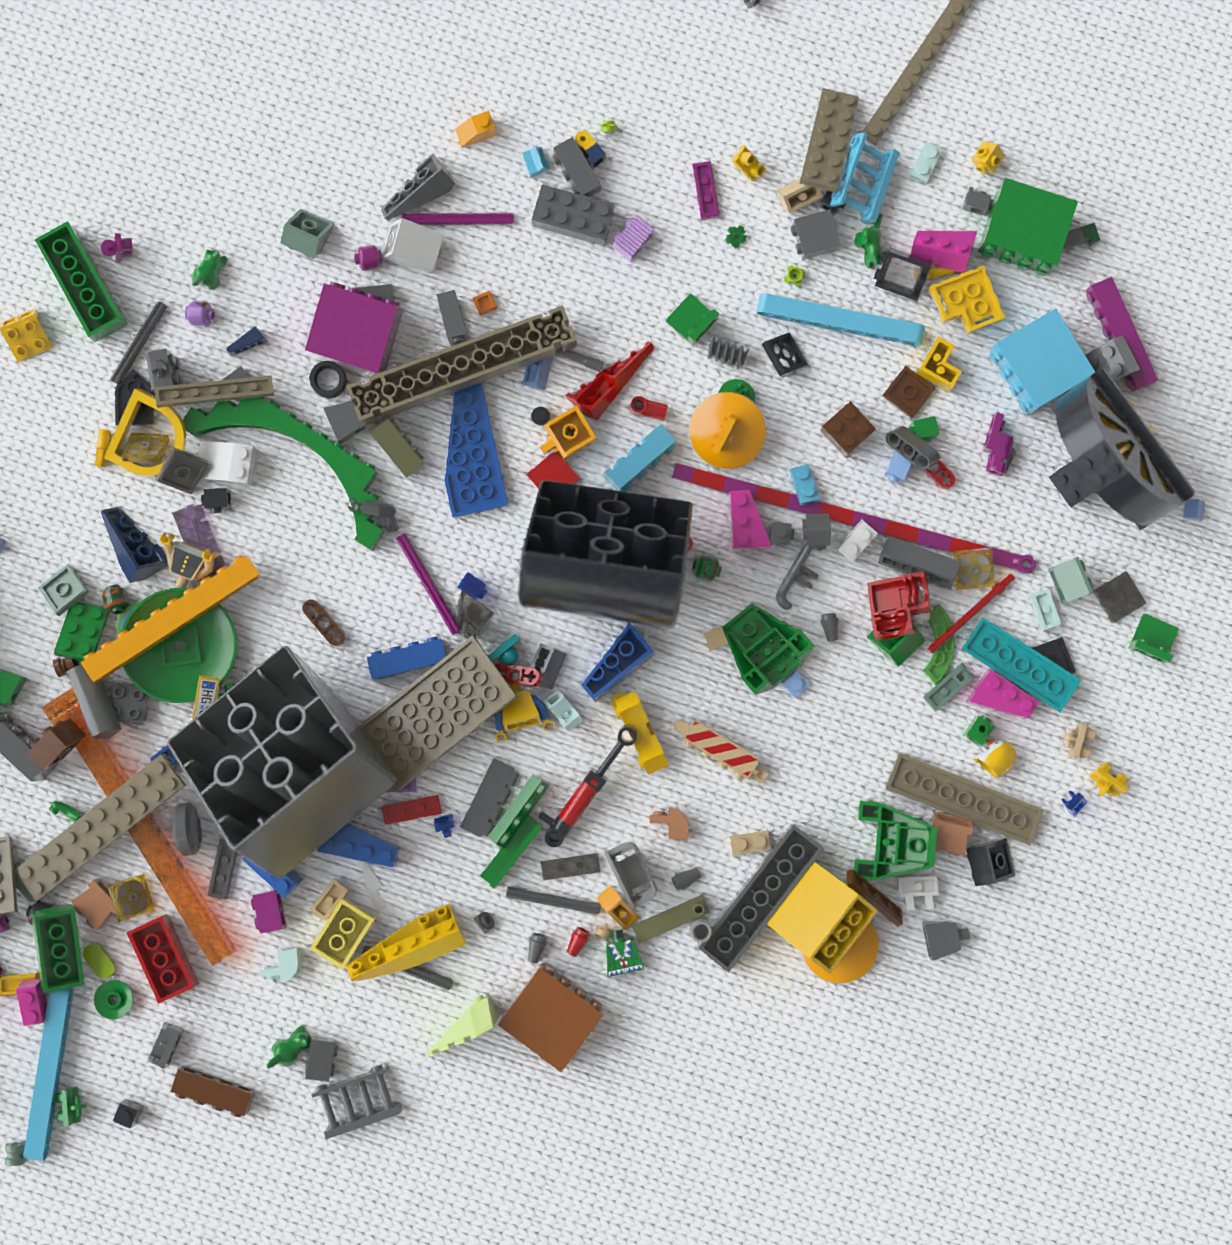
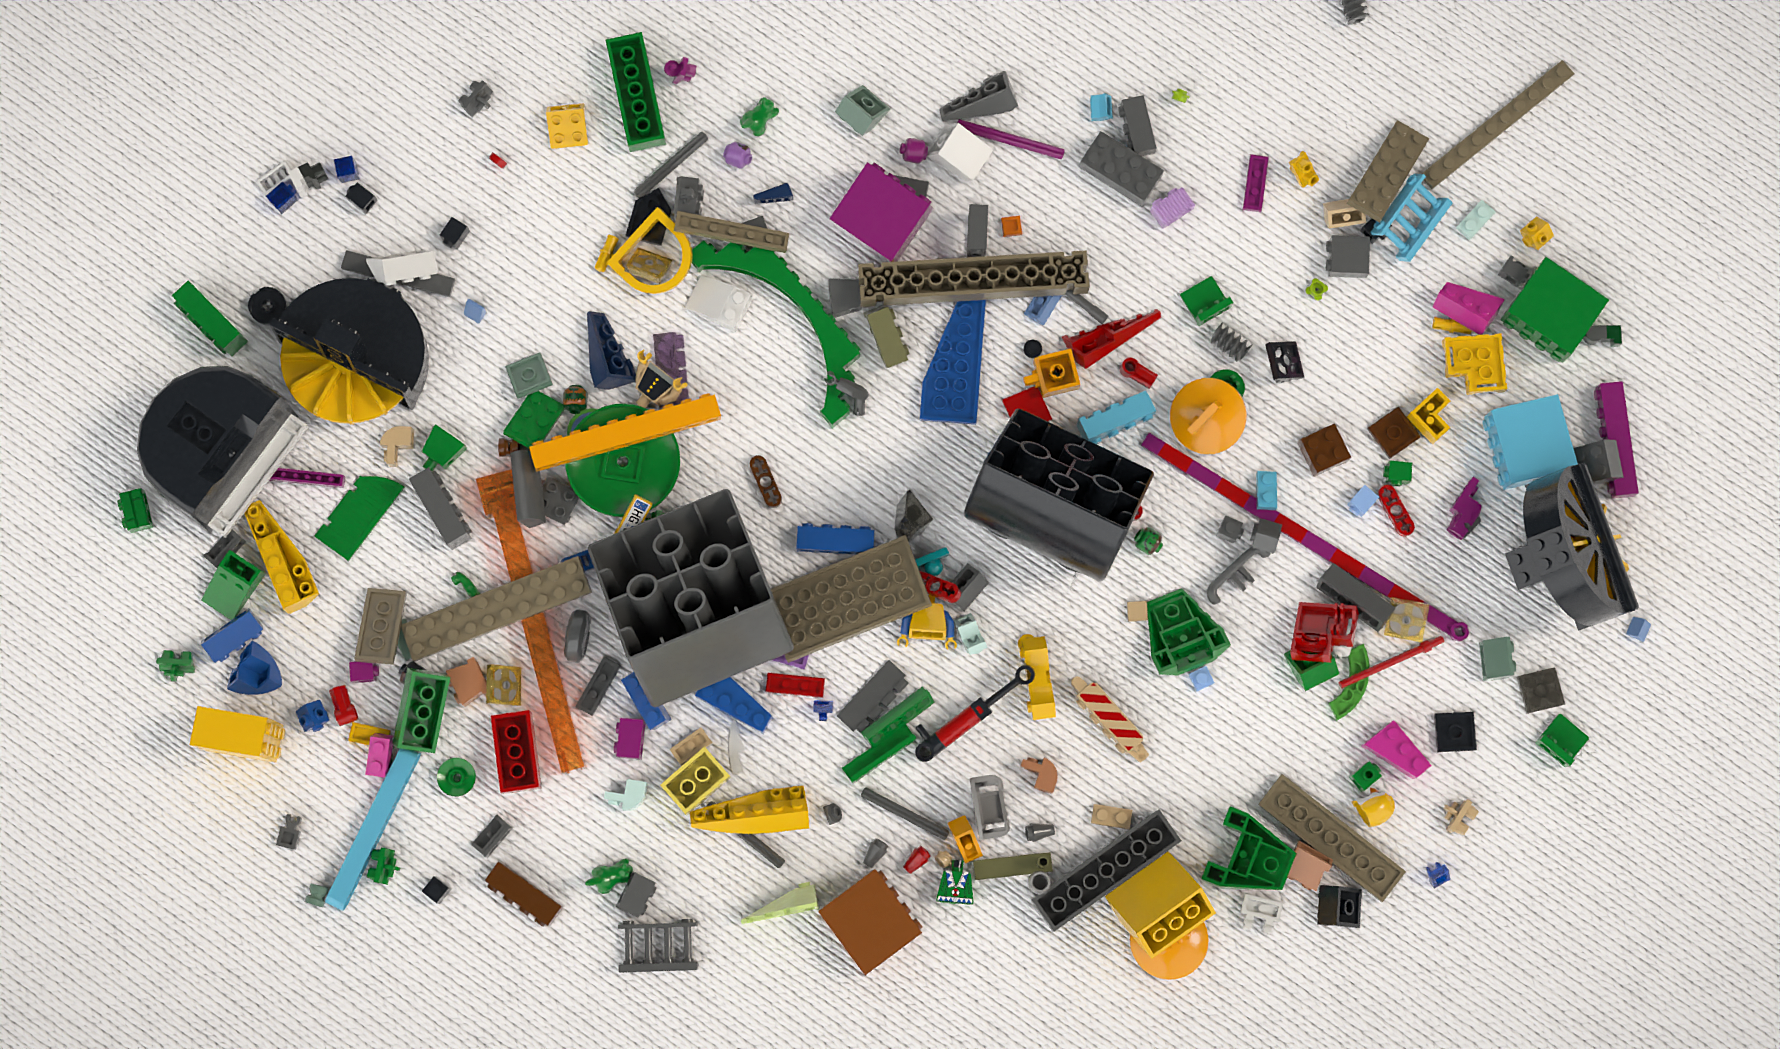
camera: 15 degrees right, 5 degrees down
(55, 743) = (481, 516): reddish brown brick -> none
(99, 960) = (453, 737): lime tile -> none
(182, 470) = (677, 297): dark grey plate -> none
(216, 500) = (699, 334): black brick -> none
(328, 365) = (840, 239): black tyre -> none
(428, 584) = (877, 475): magenta axle -> none
(473, 586) = (919, 489): clear blue brick -> none
(476, 129) = (1053, 60): light orange slope -> none
(570, 866) = (931, 786): clear smoke tile -> none
(590, 148) = (1157, 111): leg -> none
(619, 662) = (1036, 605): blue wedge -> none
(736, 236) = (1272, 235): green plant -> none
(745, 522) = (1199, 508): dark pink wedge -> none
(830, 626) = (1251, 632): dark grey cone -> none
(840, 319) = (1348, 344): medium azure beam -> none
(857, 540) = (1301, 558): white brick -> none
(870, 241) = (1399, 278): green animal -> none
(874, 897) = (1222, 911): reddish brown tile -> none
(902, 273) = (1420, 318): window -> none
(912, 448) = (1381, 485): dark grey beam -> none
(943, 938) = (1271, 965): dark grey torso -> none
(948, 687) = (1347, 726): sand green plate -> none
(1021, 664) = (1425, 725): teal plate -> none
(1045, 609) = (1464, 680): light aqua plate -> none
(1107, 783) = (1476, 865): yellow hips -> none

